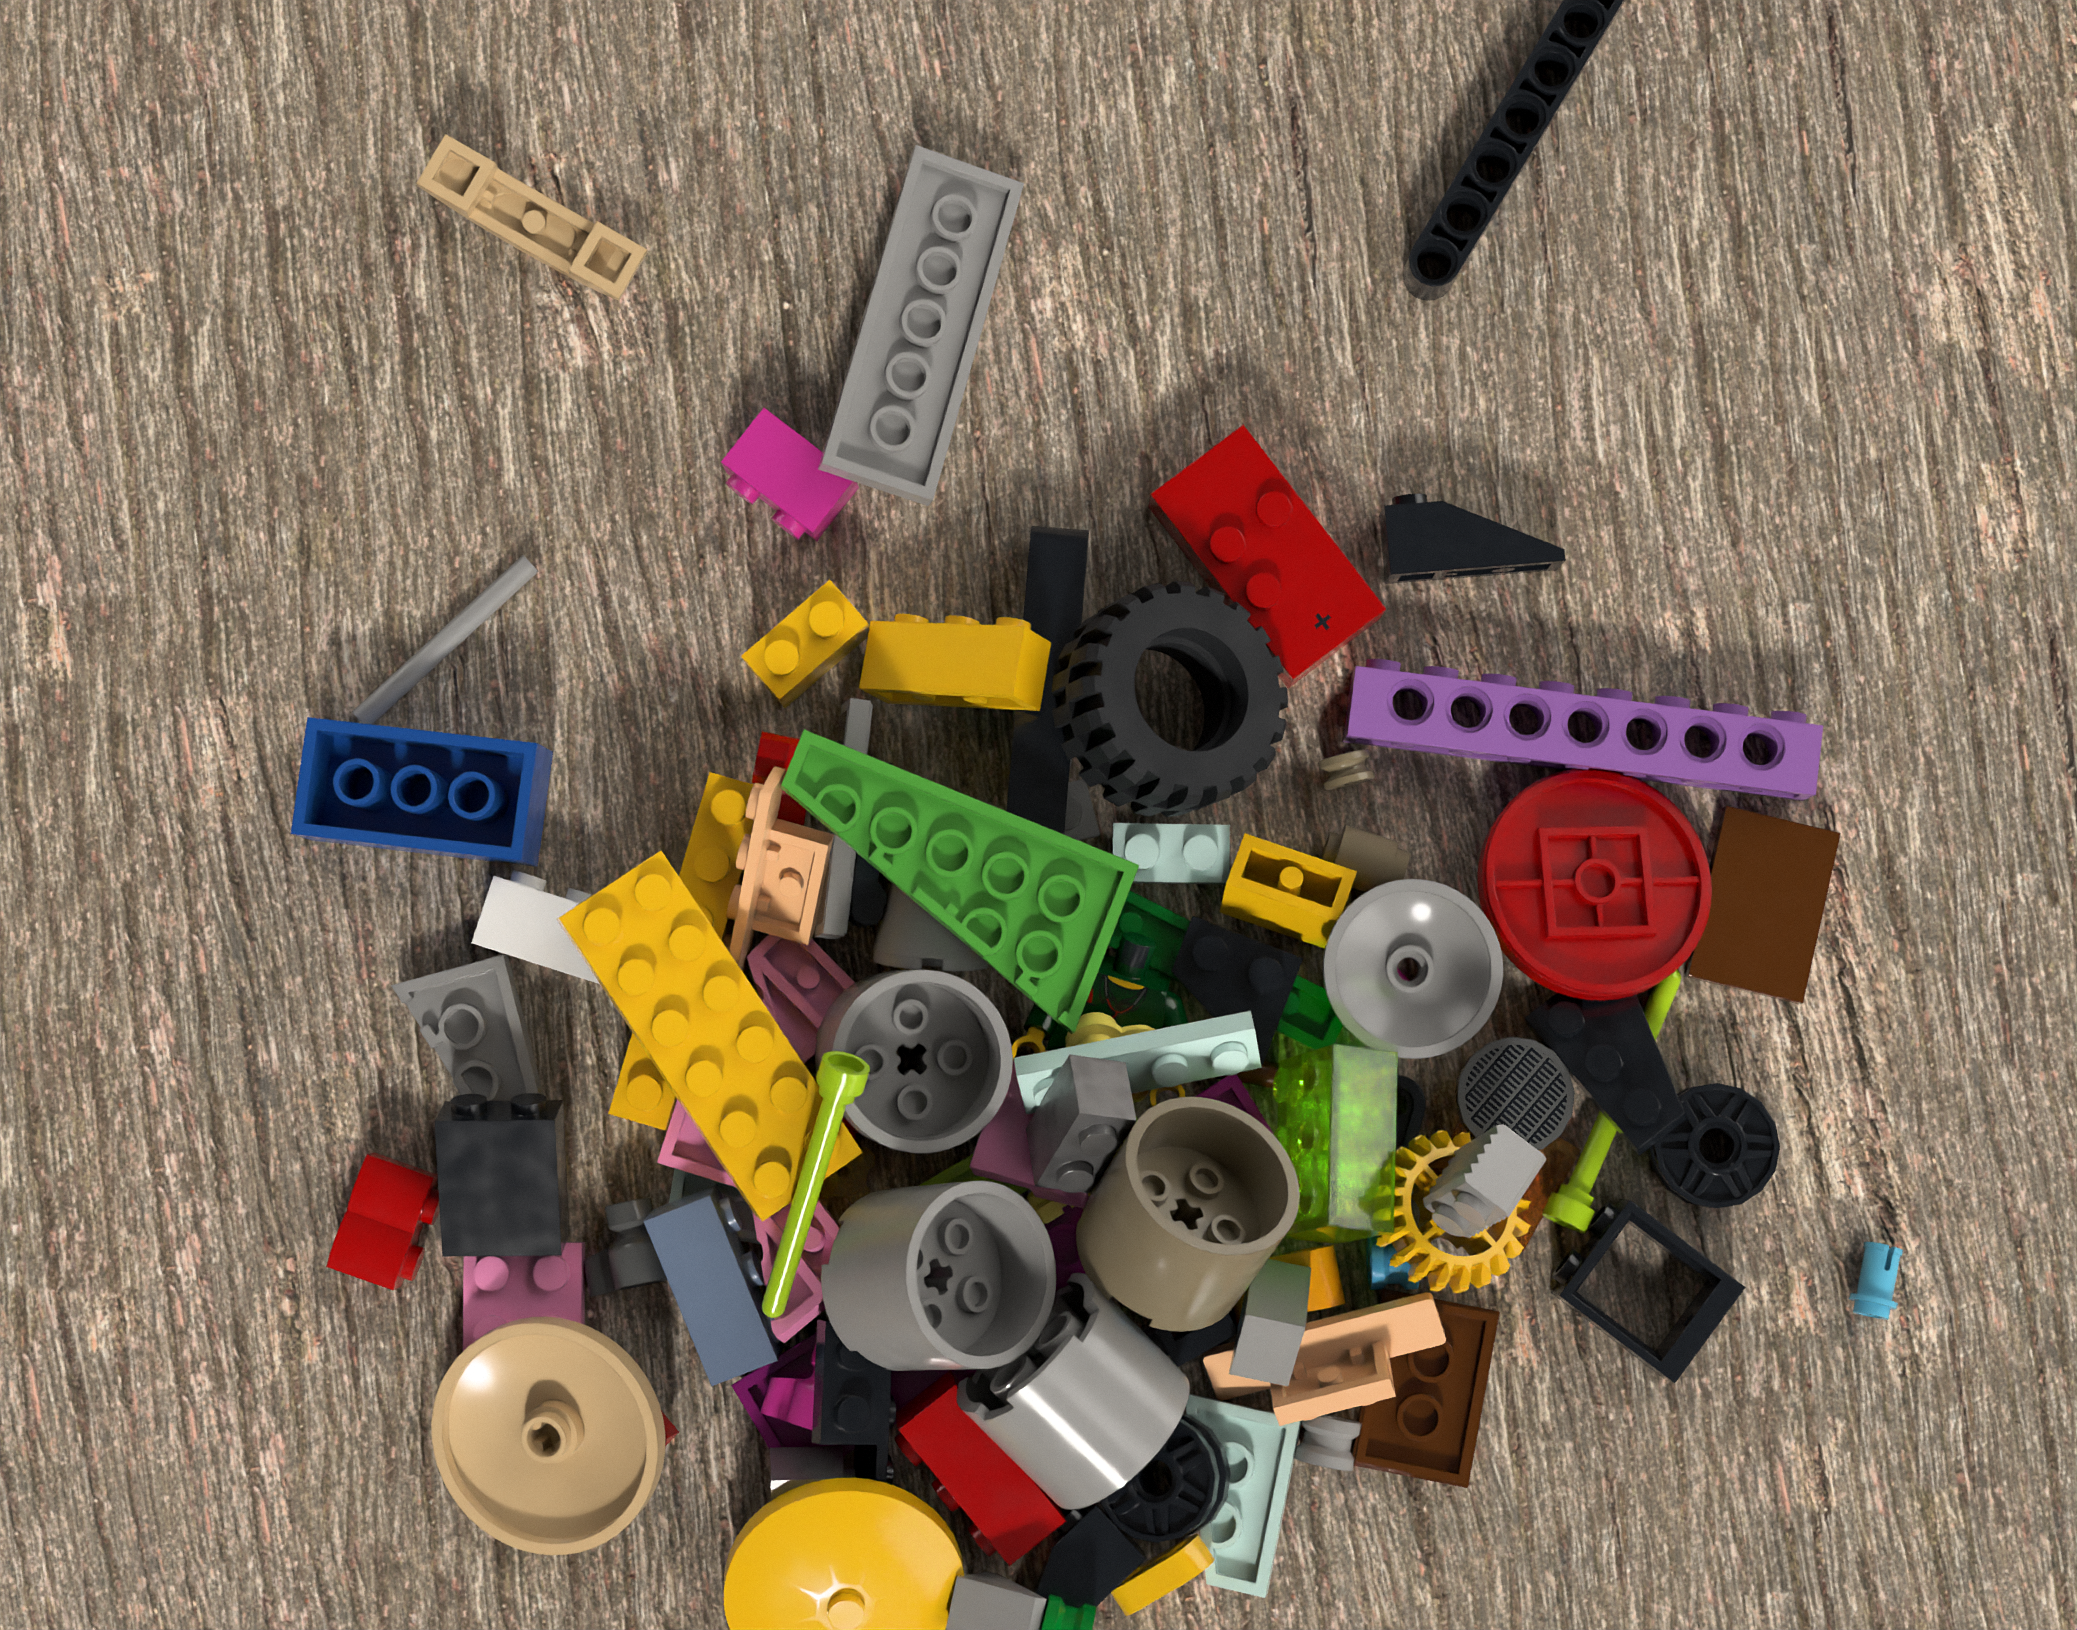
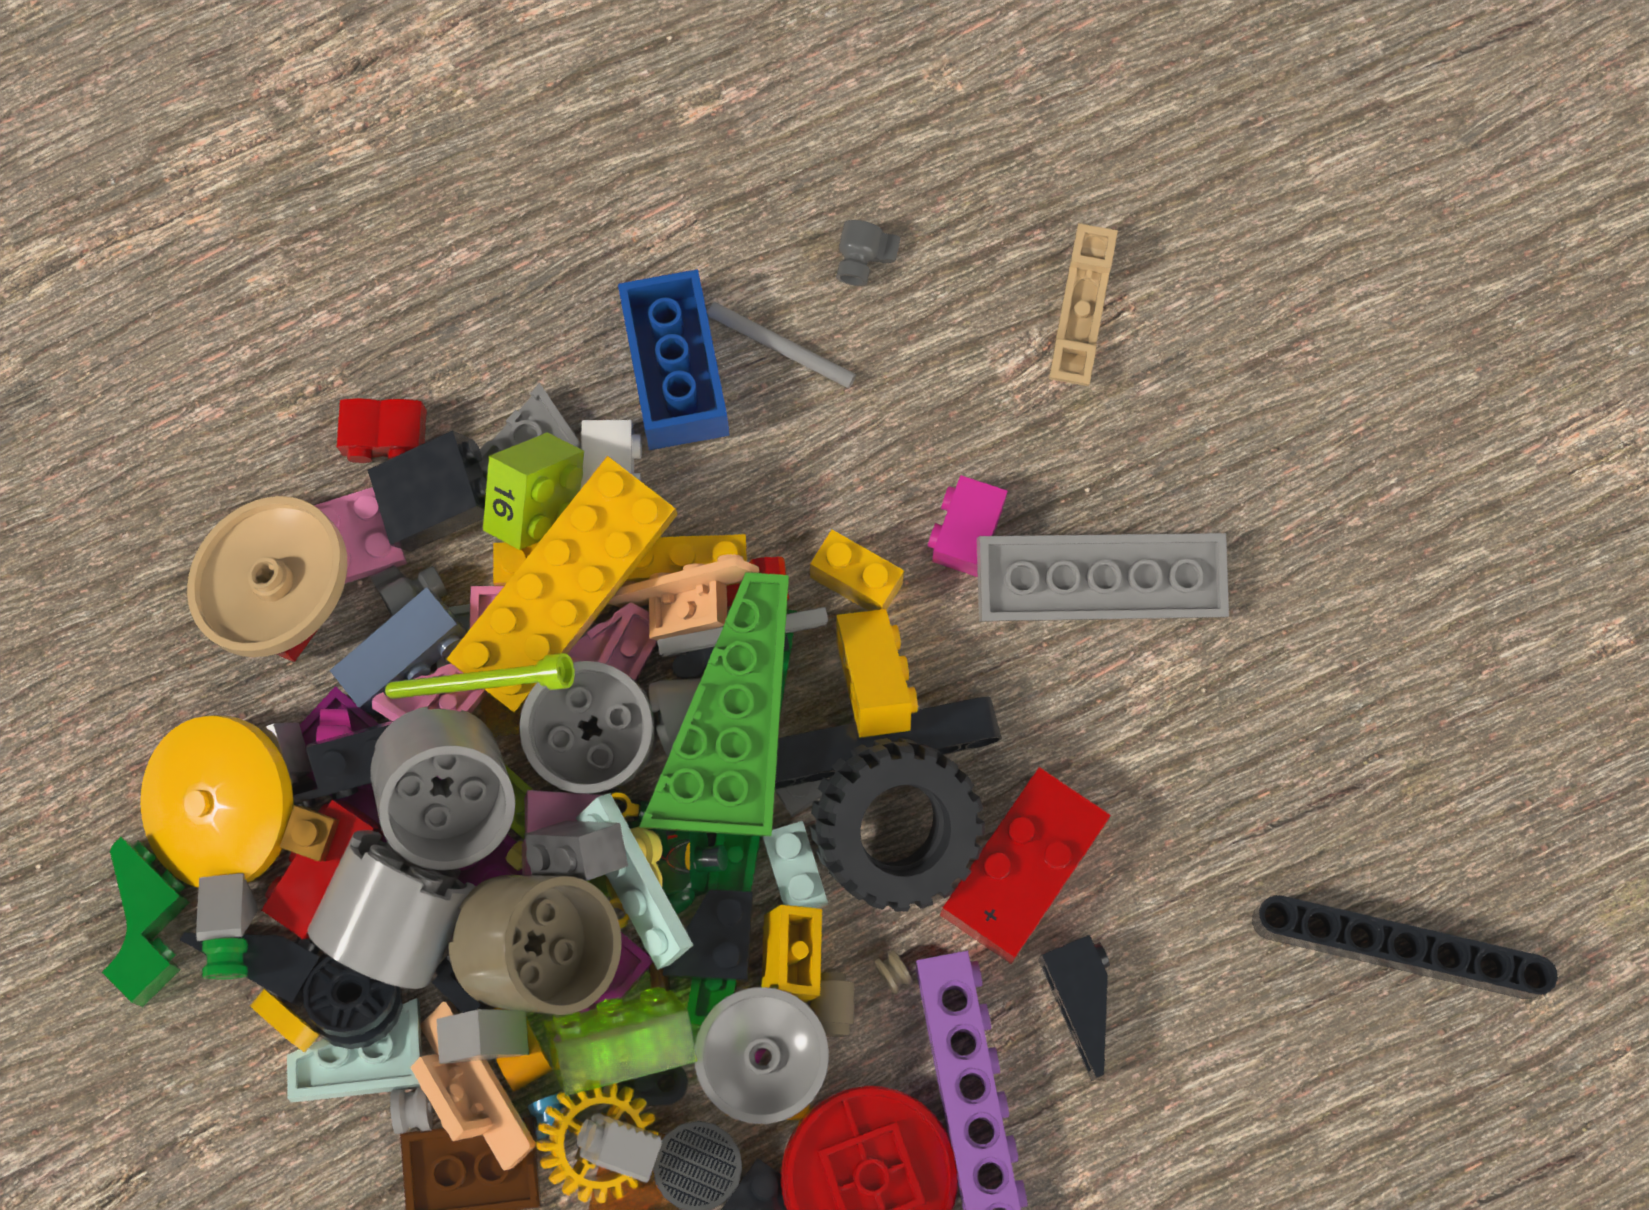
camera: 70 degrees right, 10 degrees down
(340, 486) = (861, 244): none -> dark grey piece
(556, 1037) = (530, 488): none -> lime brick
(934, 1472) = (309, 833): none -> pearl gold plate

